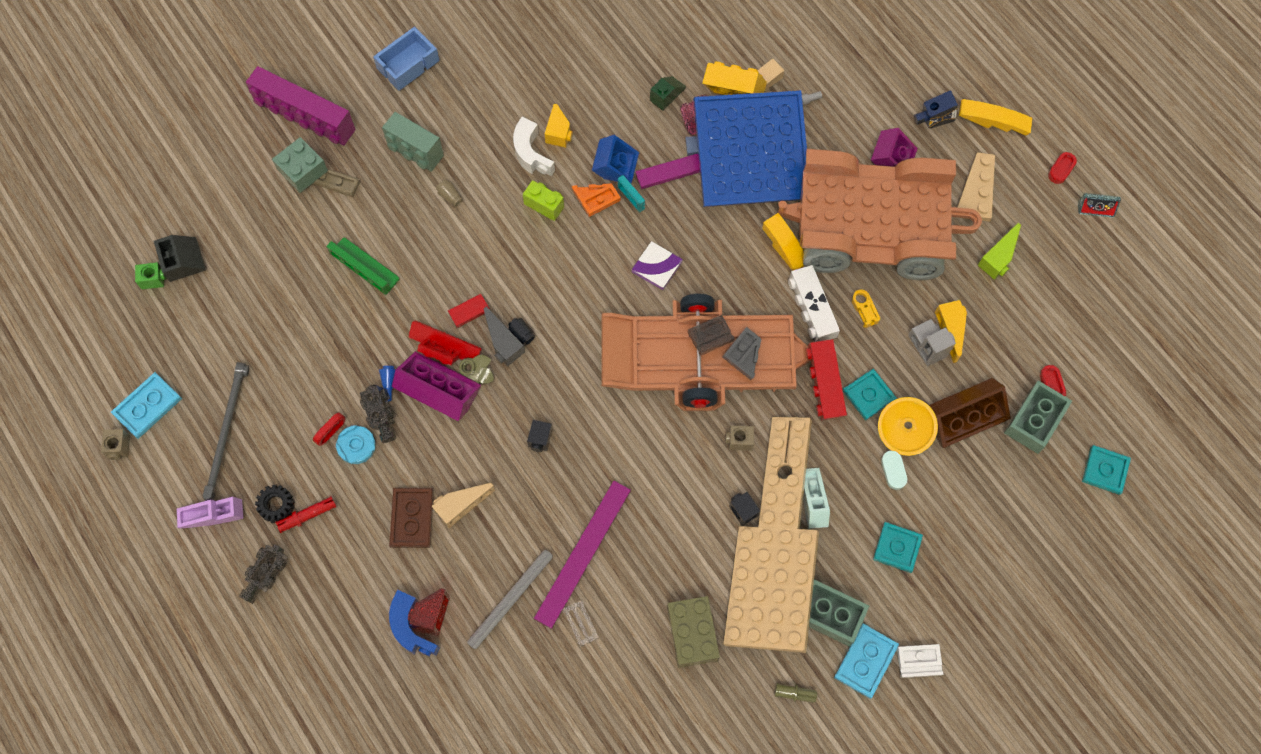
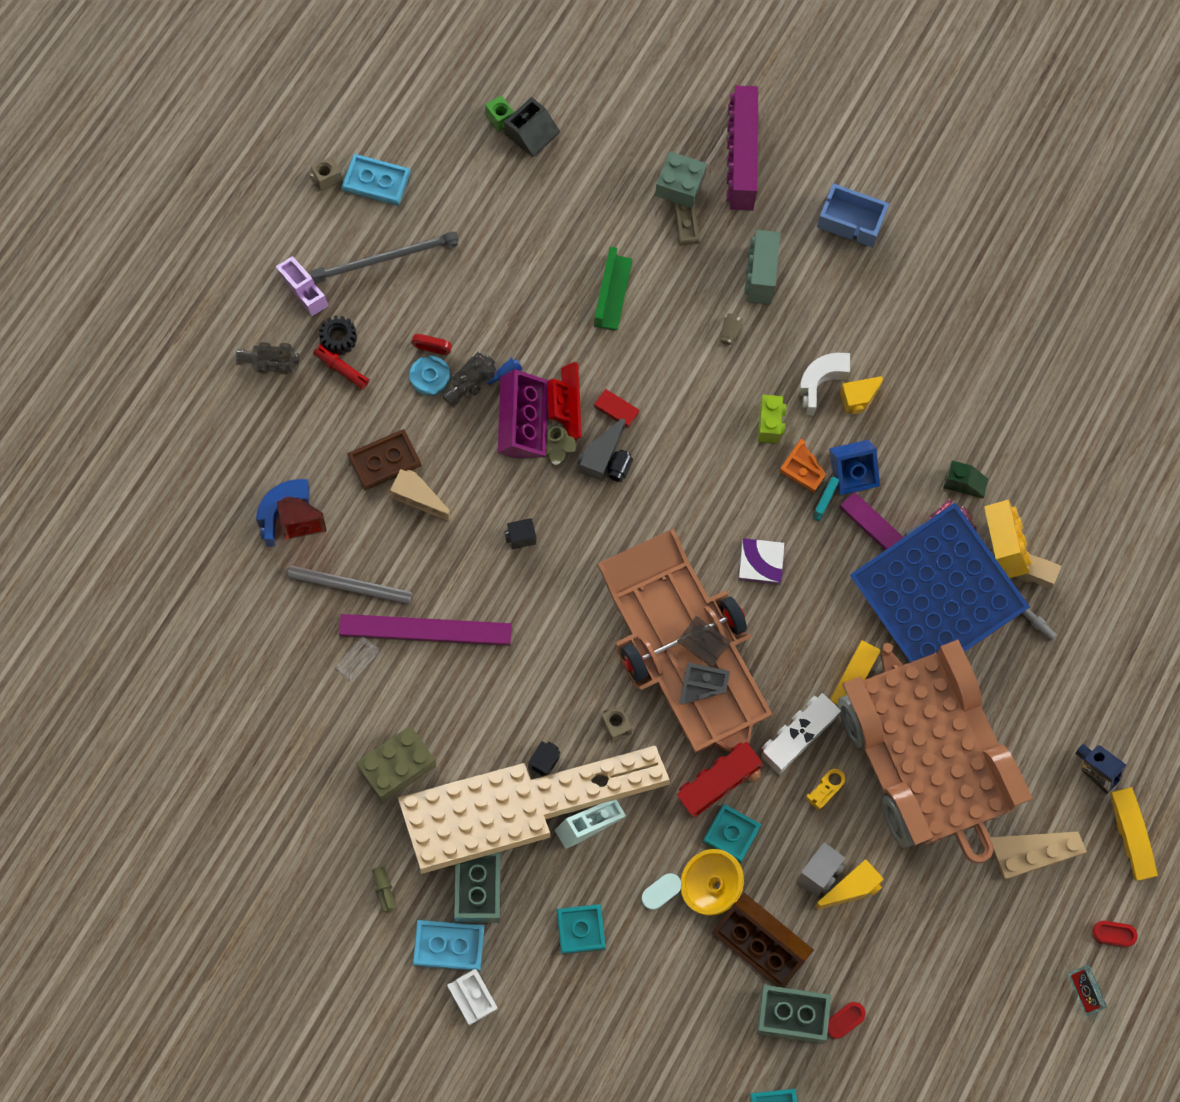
camera: 60 degrees right, 0 degrees up
(893, 148) = (1027, 741): magenta slope -> none
(999, 257) = (964, 904): lime slope -> none

